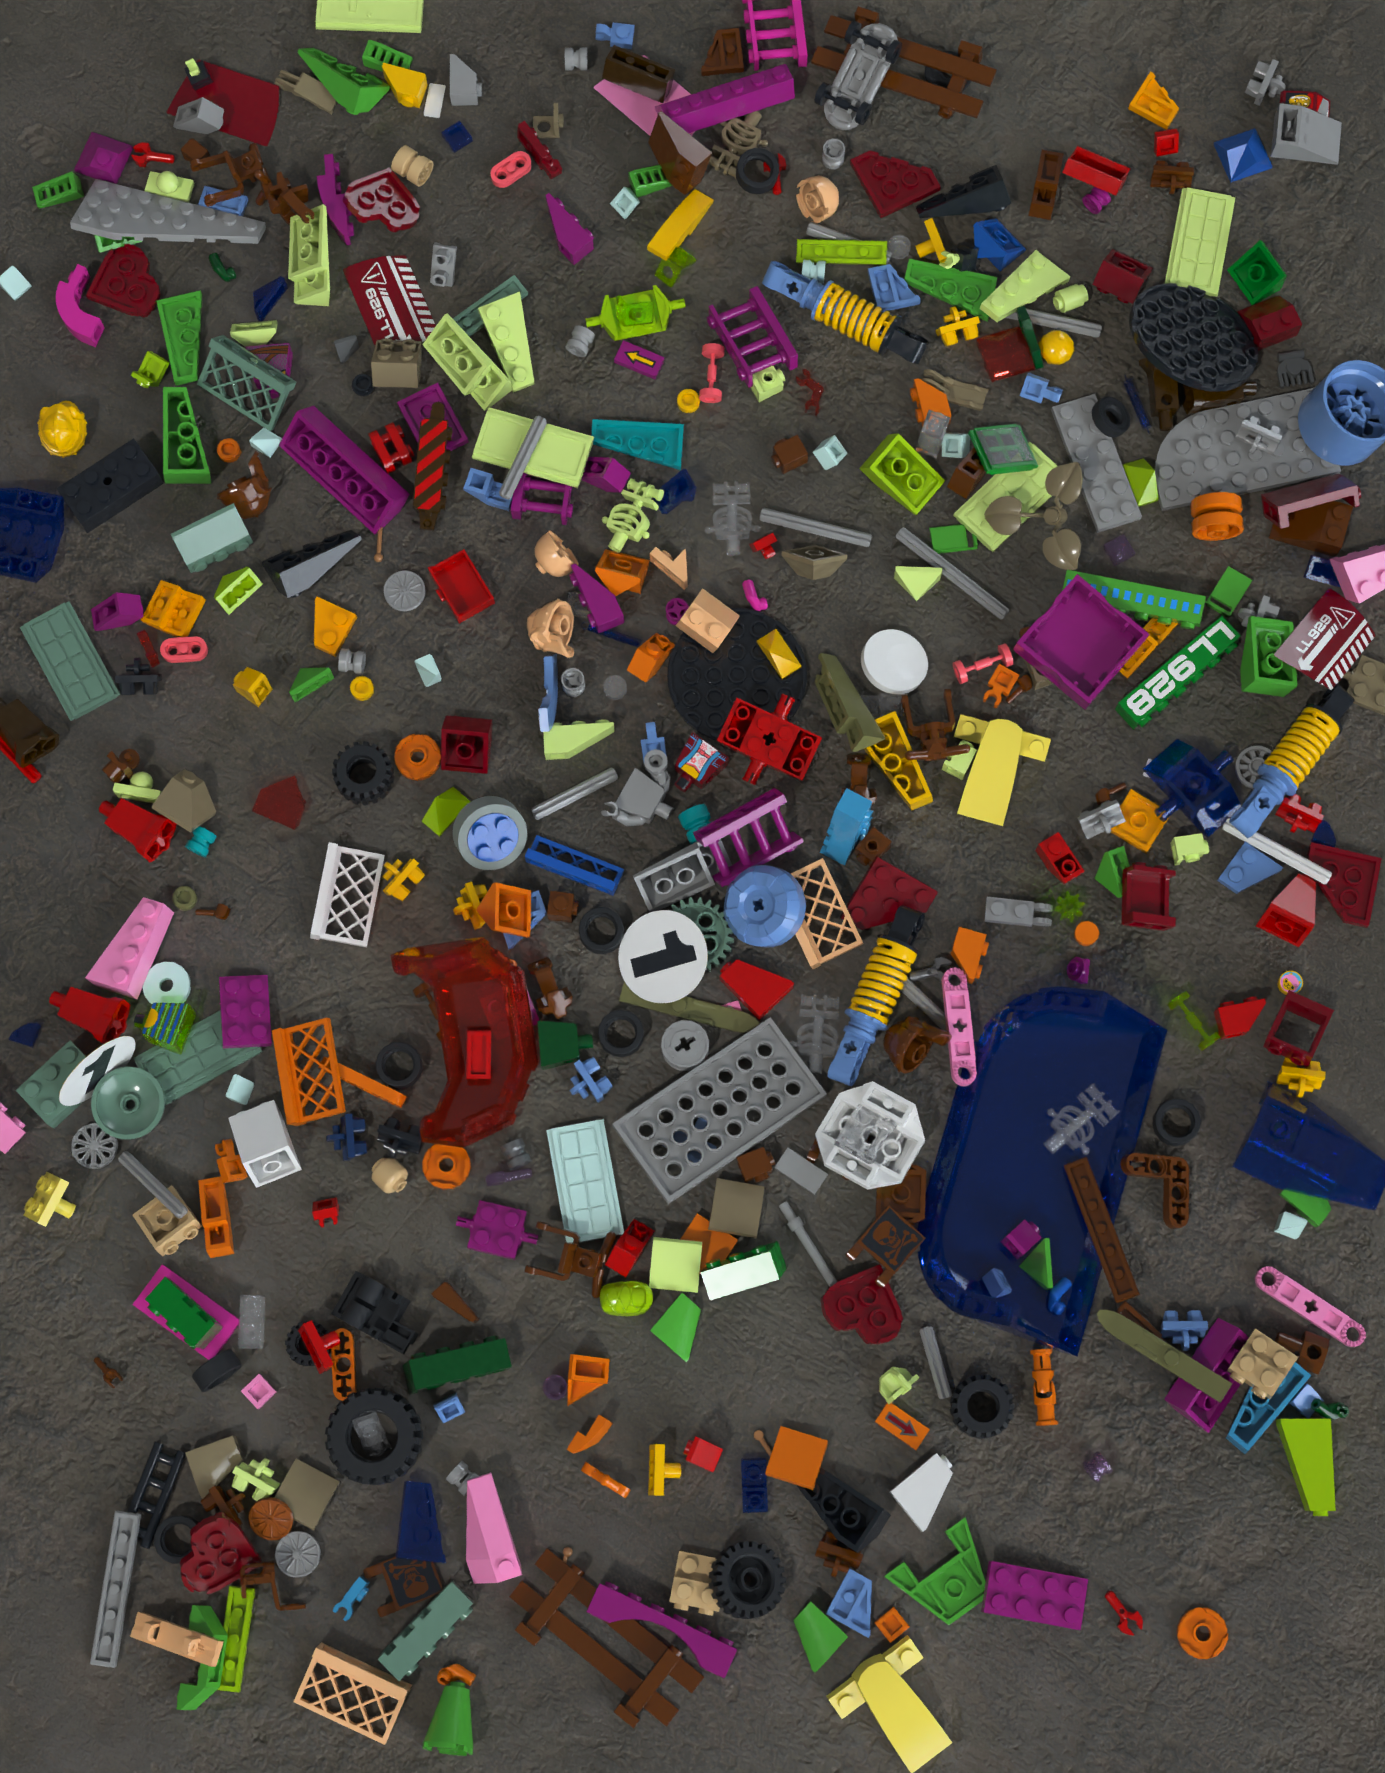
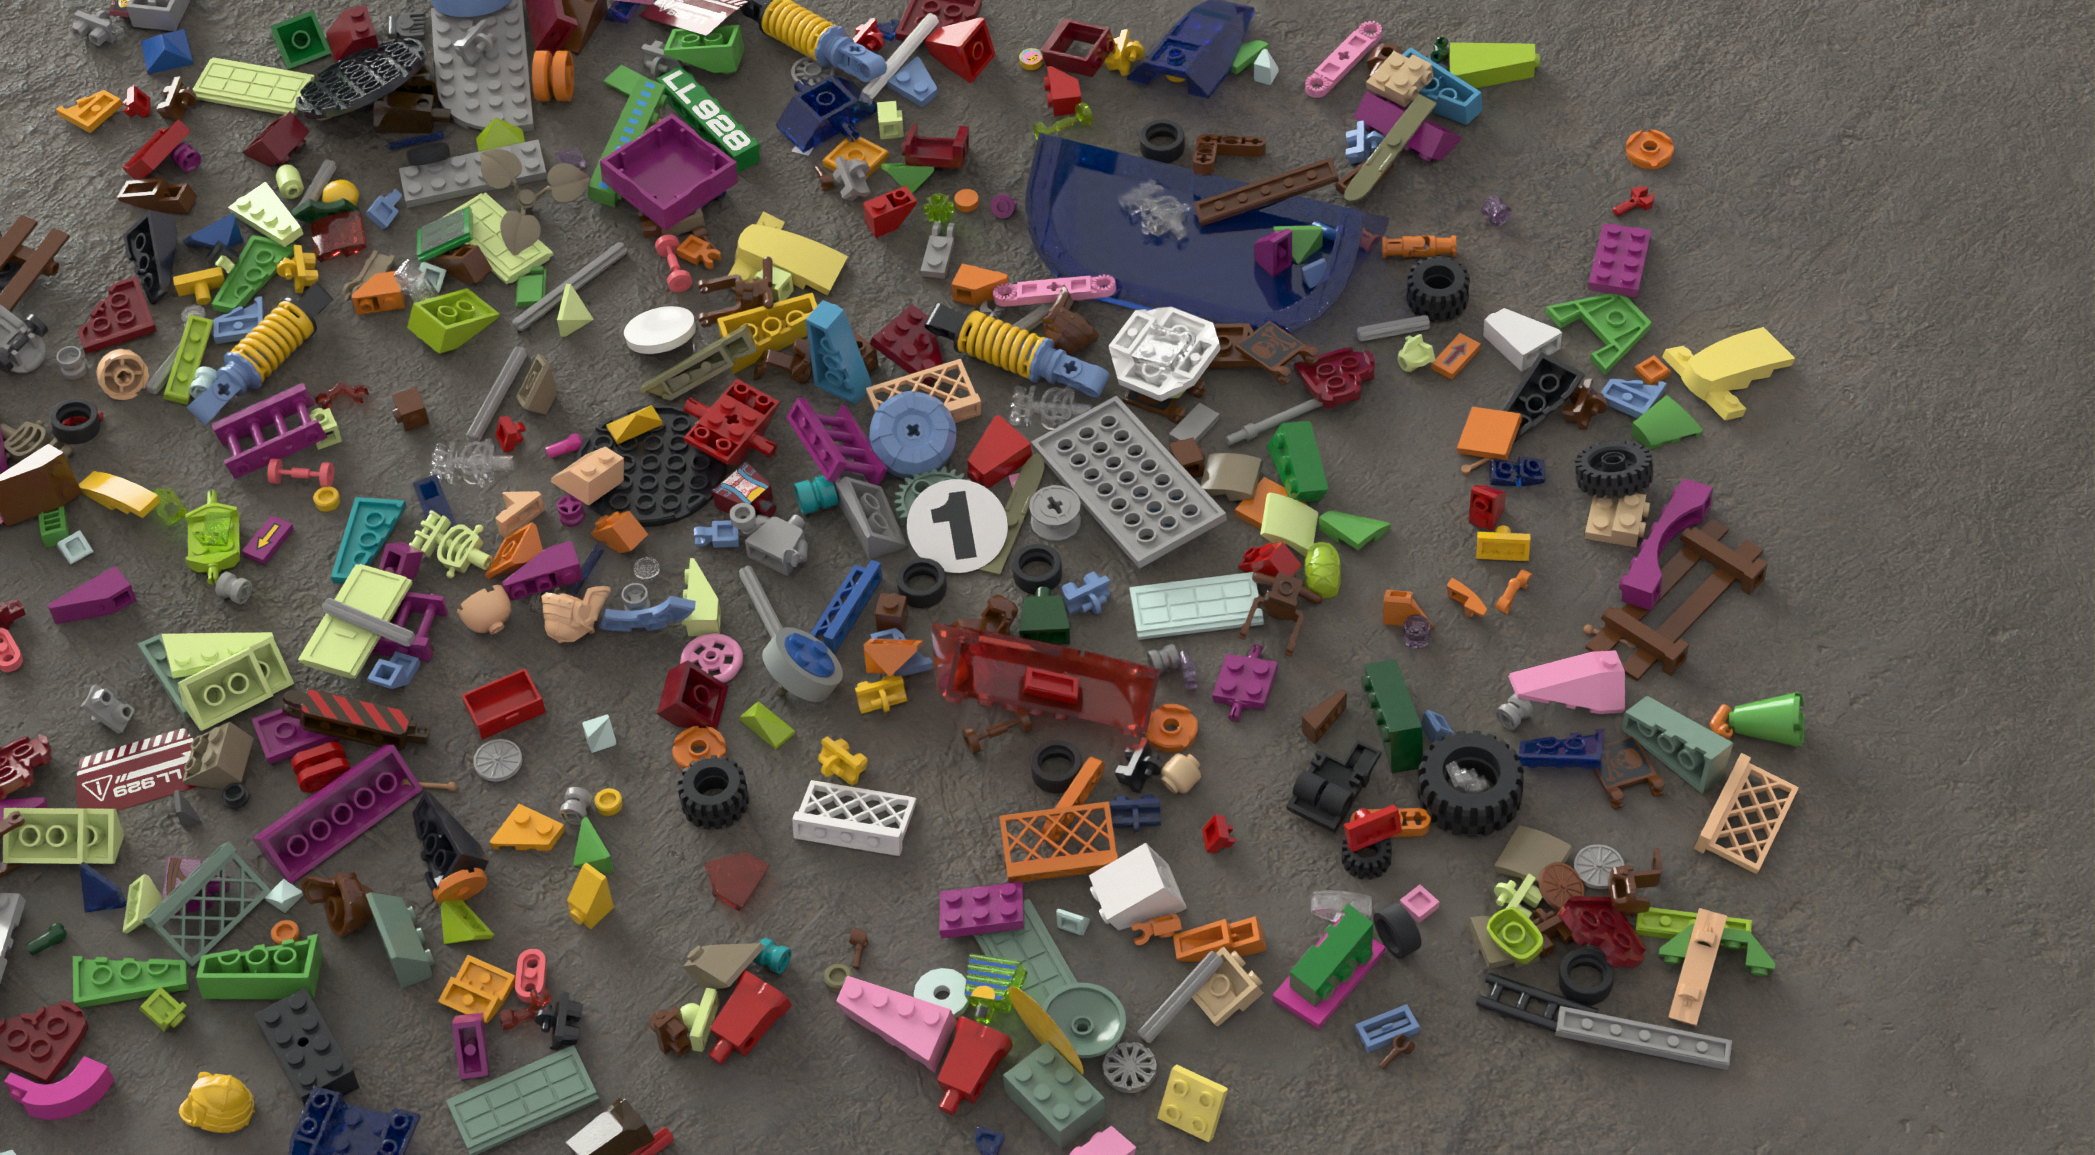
camera: 85 degrees left, 25 degrees down
(124, 1344) = (1386, 1034): none -> medium blue tile
(202, 1473) = (1515, 935): none -> lime piece
(260, 579) = (460, 885): none -> orange tile
(356, 1592) = (1639, 810): dark azure plate -> none
(526, 771) = (708, 641): none -> bright pink plate
(830, 452) = (415, 377): light aqua slope -> none

